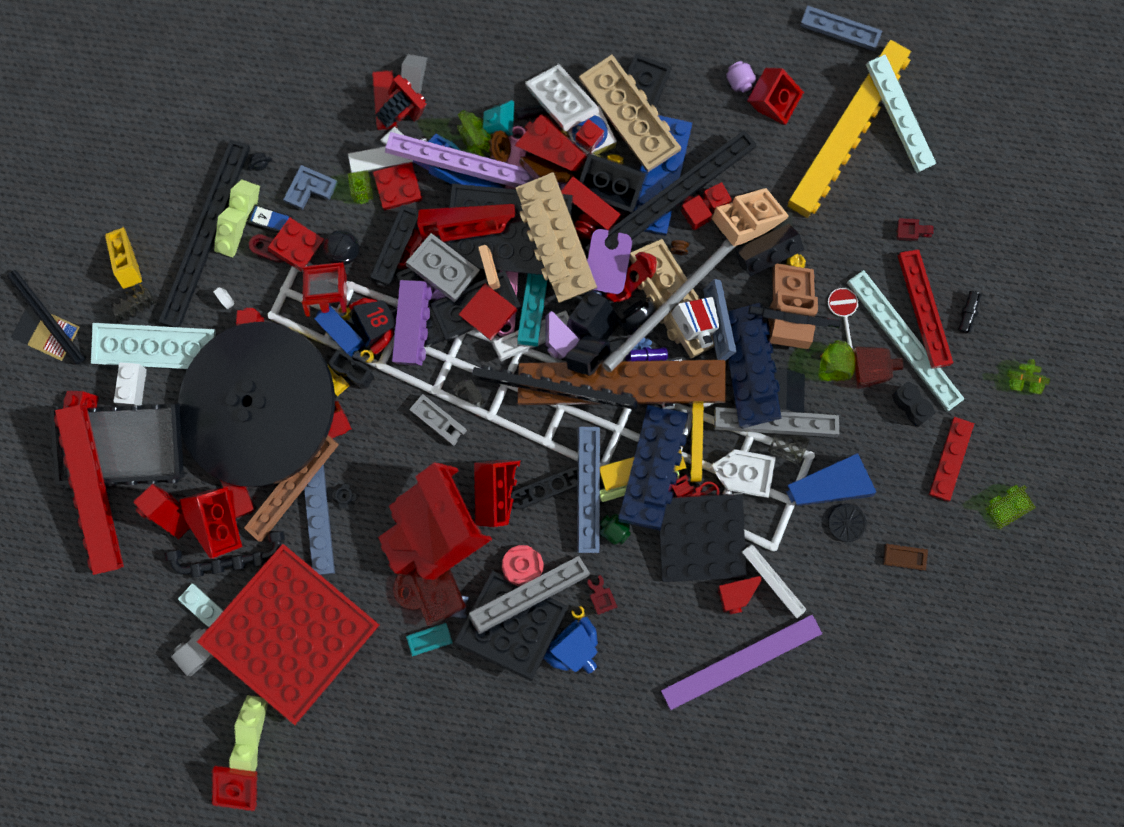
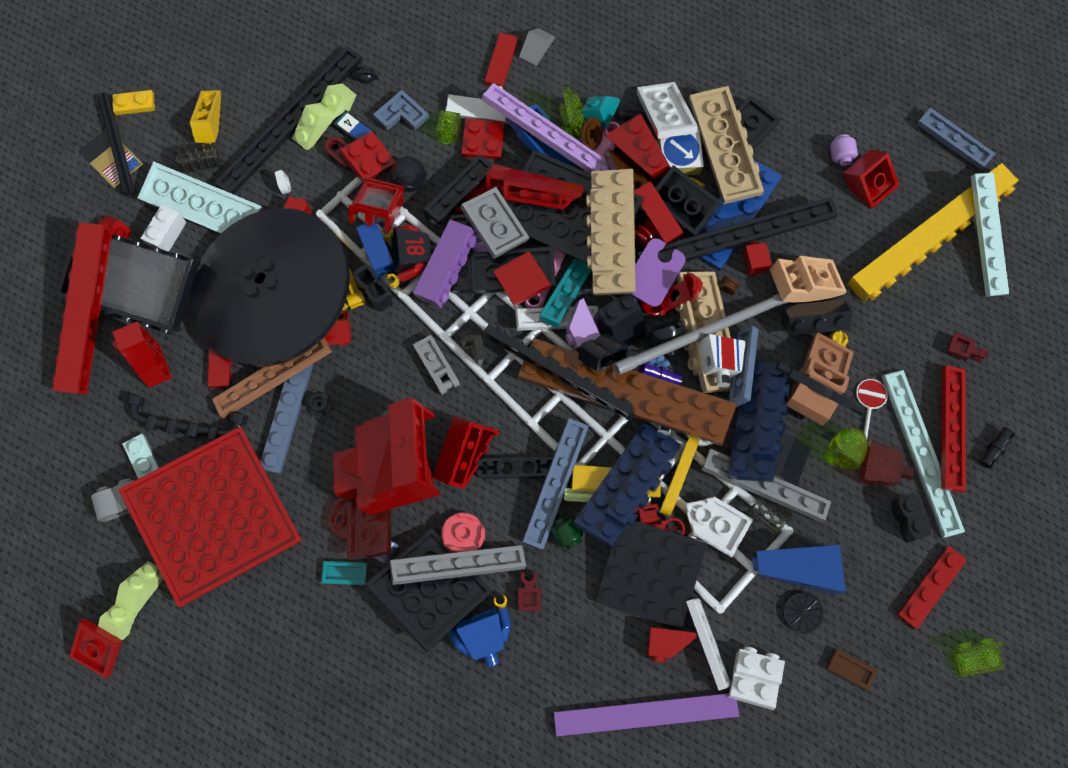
camera: 15 degrees right, 5 degrees down
(44, 269) = (133, 102): none -> yellow plate
(212, 521) = (184, 381): red slope -> none
(400, 103) = (514, 64): plate -> none
(489, 267) = (539, 237): light nougat tile -> none
(589, 135) = (679, 150): red brick -> none
(716, 197) = (781, 249): red brick -> none
(825, 595) = (756, 678): none -> white plate
(1037, 381) = (1045, 542): clear neon green hips -> none

